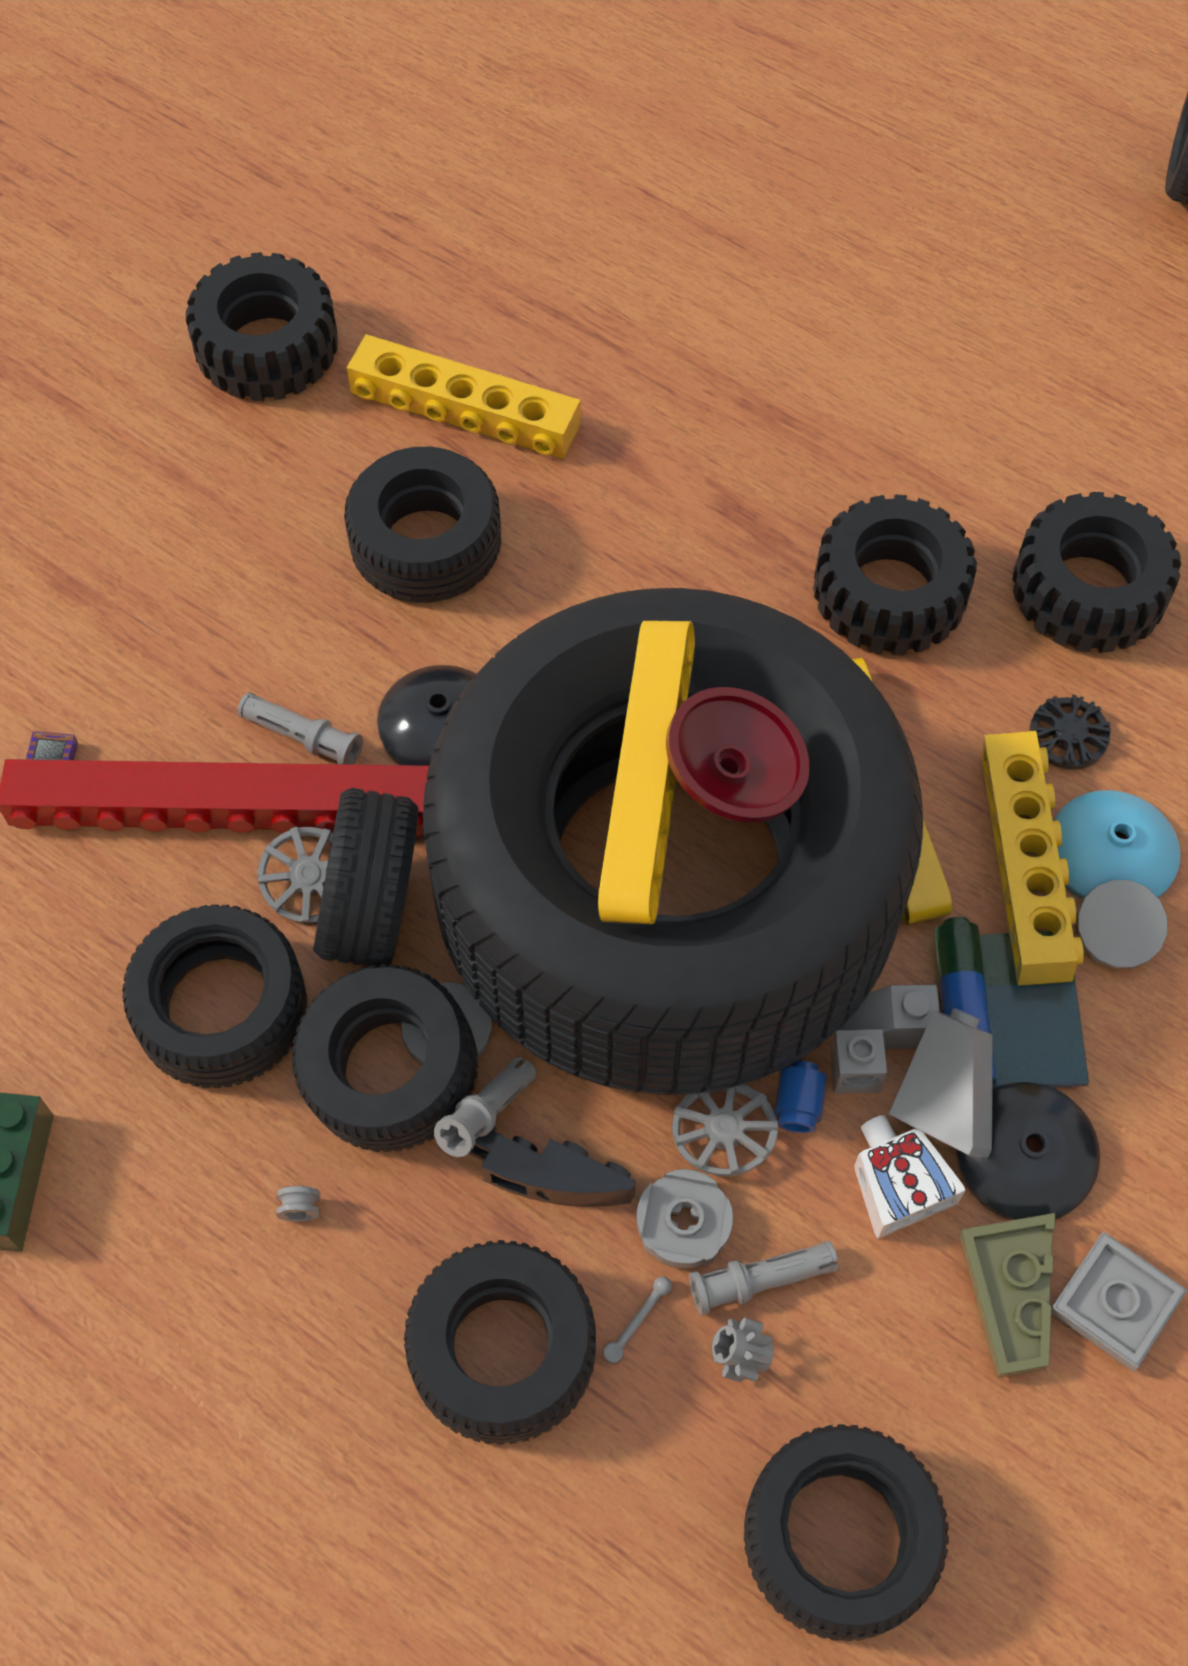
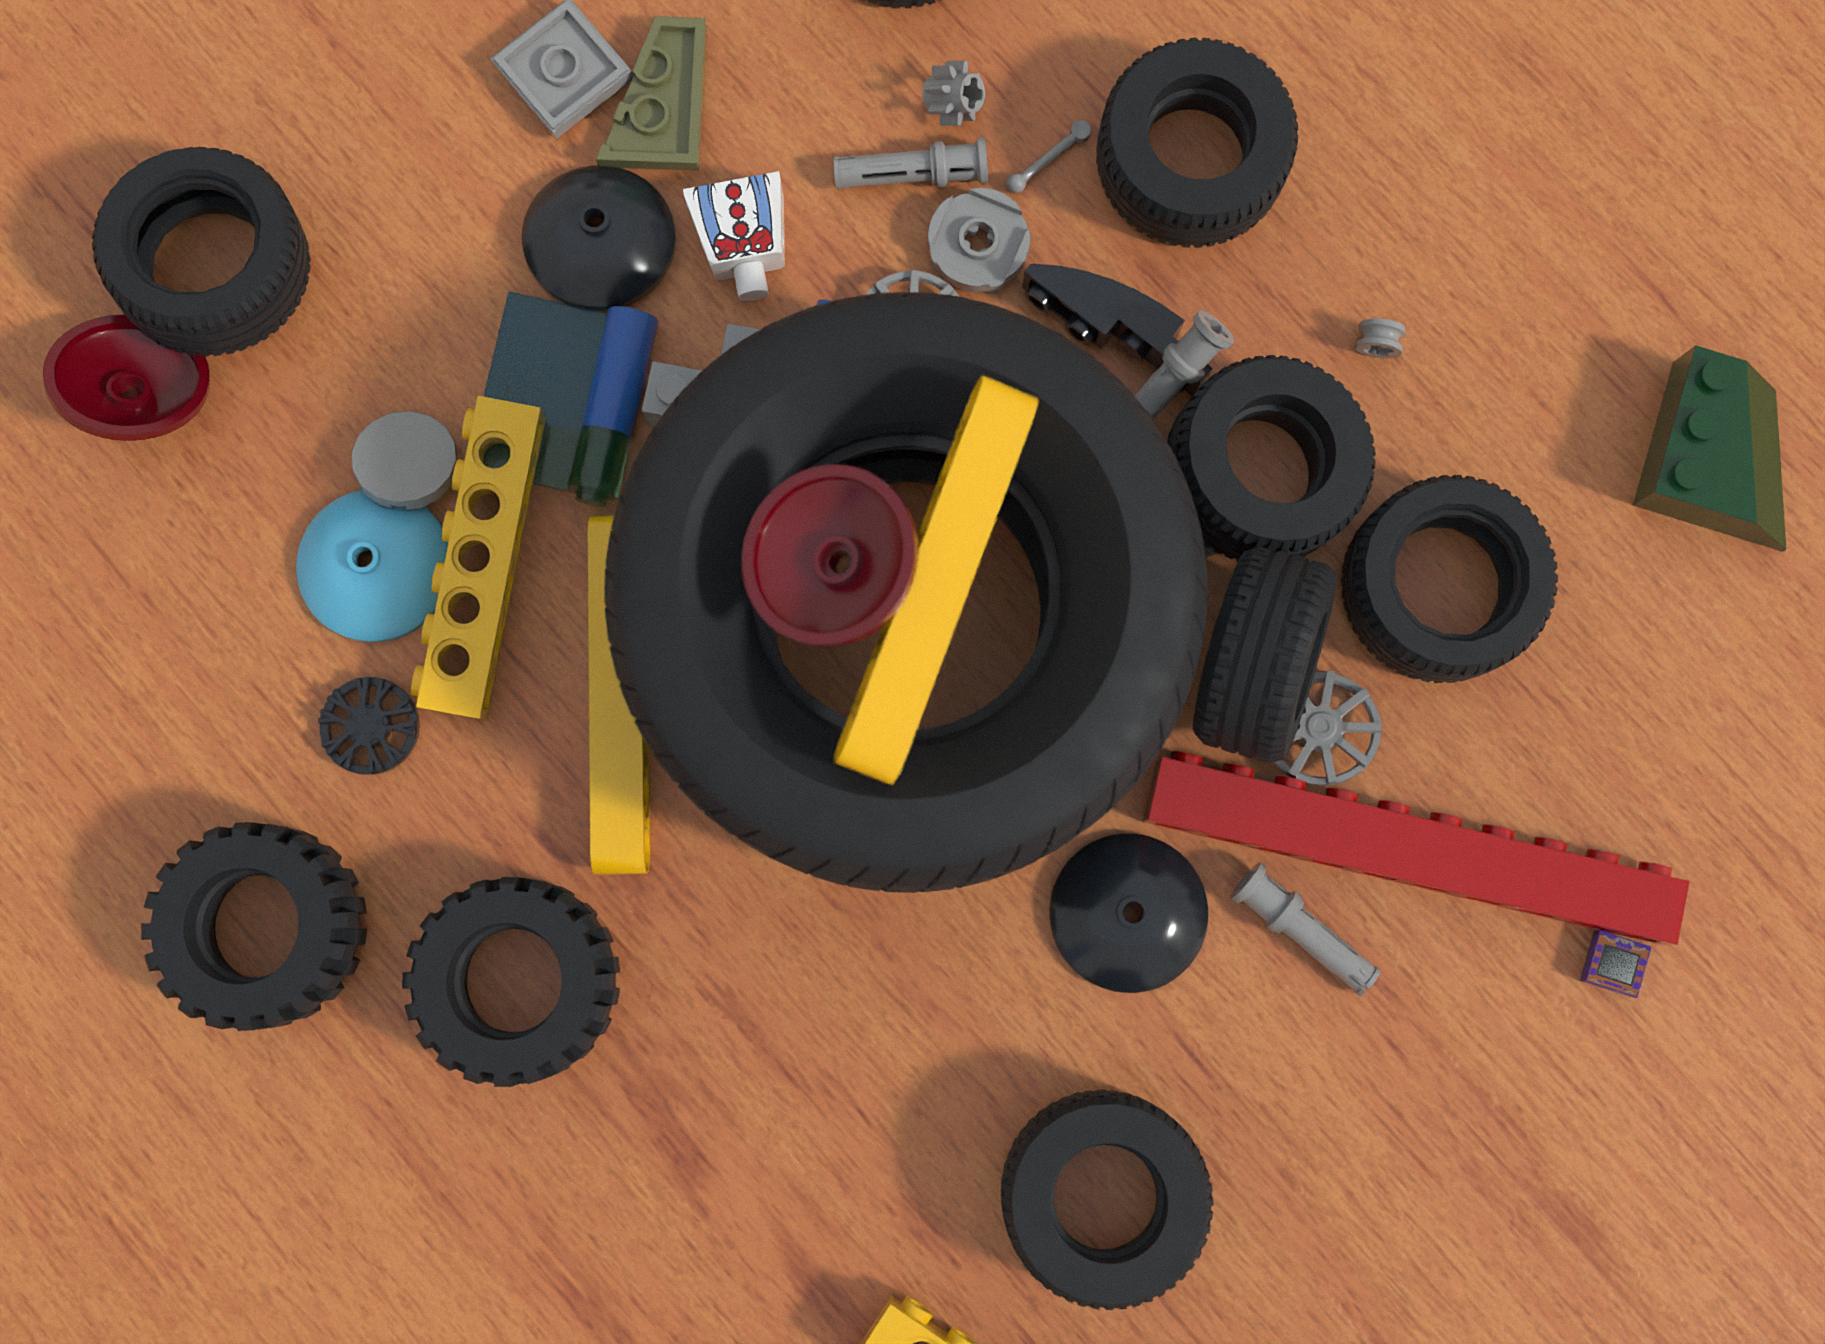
camera: 165 degrees left, 20 degrees up
(950, 1084) = (663, 292): light grey slope -> none

